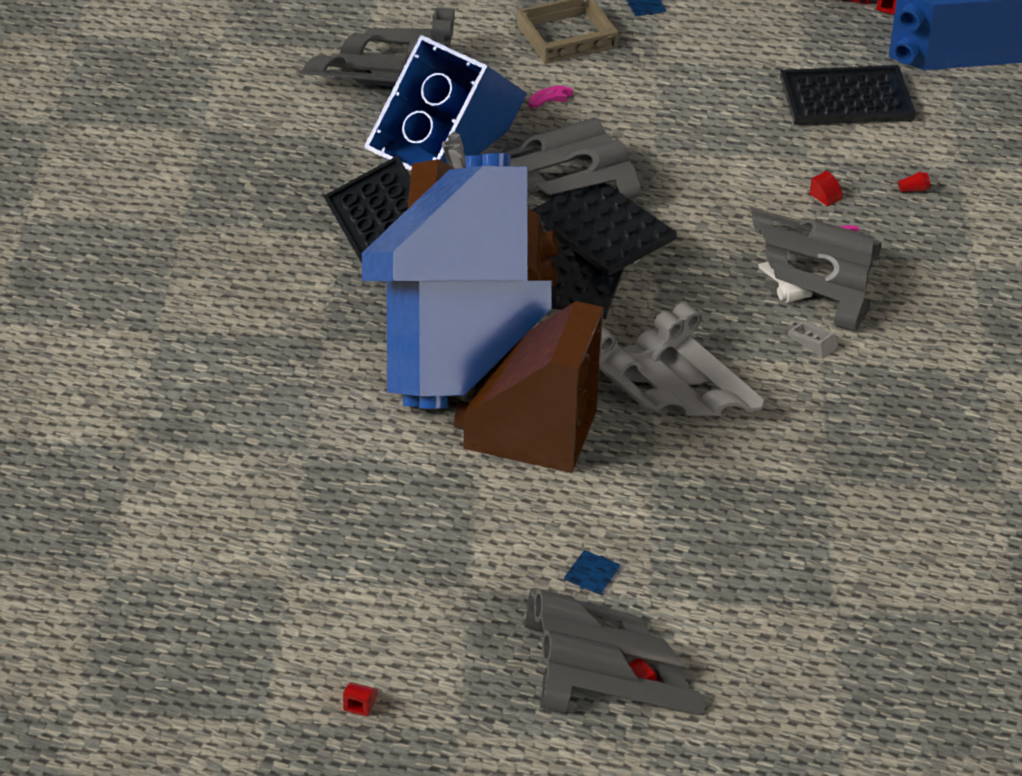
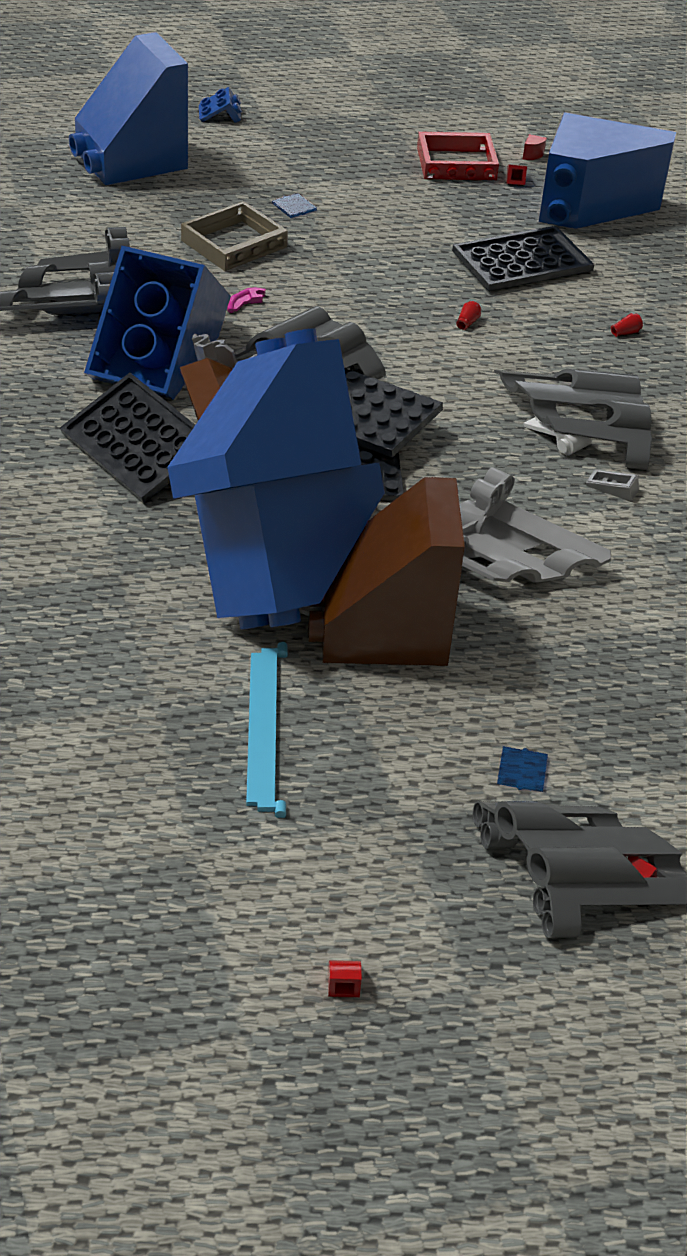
camera: 20 degrees left, 0 degrees up
(386, 492) = (262, 731): none -> medium azure piece
(760, 145) = (469, 314): none -> red cone
(826, 188) = (550, 343): red brick -> none

